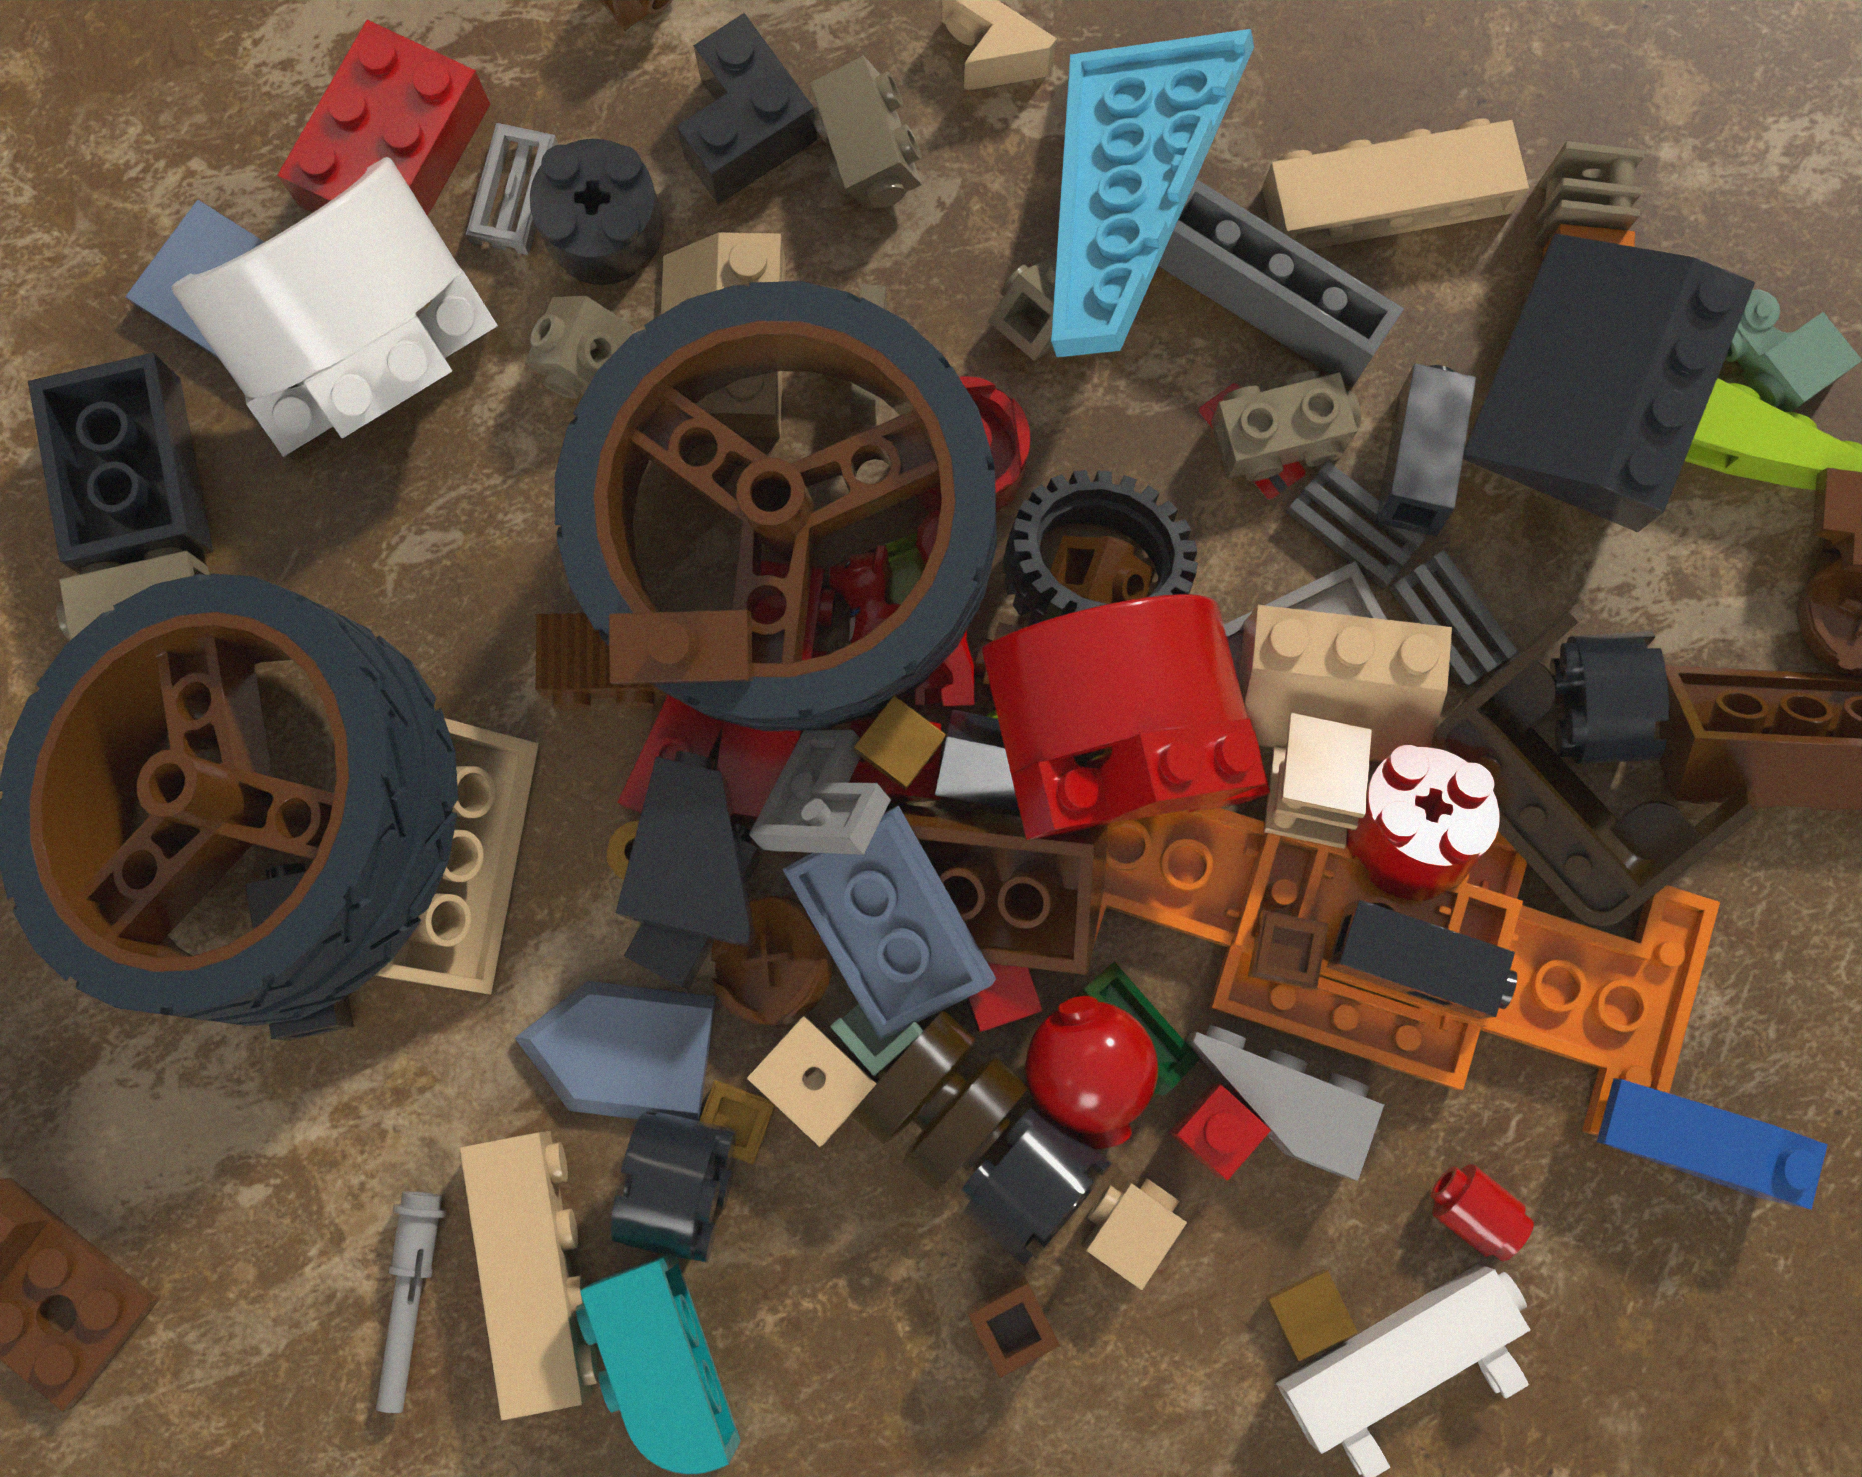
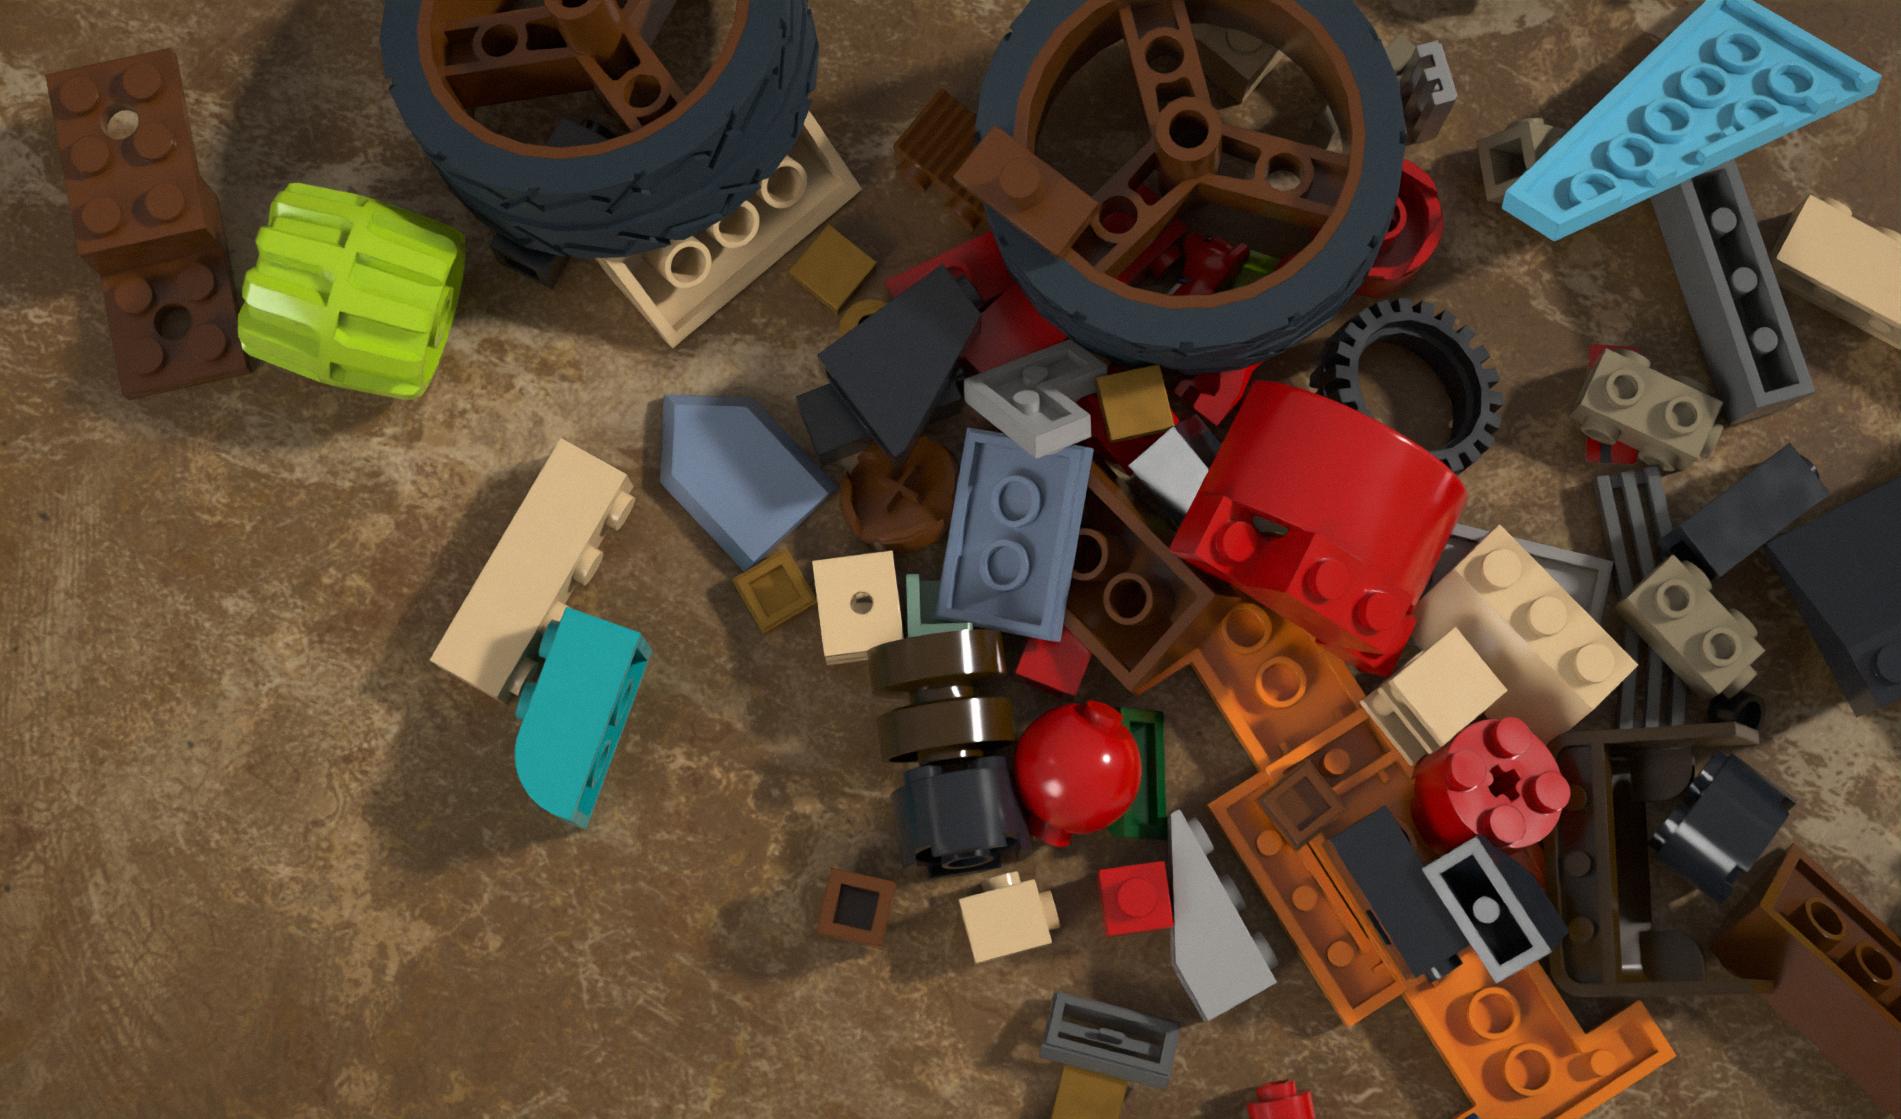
camera: 40 degrees right, 0 degrees up
(184, 1175) = (352, 291): none -> lime wheel
(410, 1263) = (454, 496): light grey pin -> none
(568, 826) = (833, 269): none -> pearl gold tile
(673, 1185) = (693, 595): black brick -> none
(910, 299) = (1428, 100): none -> light grey tile
(1101, 569) = (1403, 400): reddish brown brick -> none
(1302, 1278) = (1107, 1049): none -> dark grey tile
(1463, 566) = (1692, 629): none -> dark tan brick
(1511, 908) = (1496, 906): none -> black slope
(1541, 602) = (1741, 708): none -> black hinge

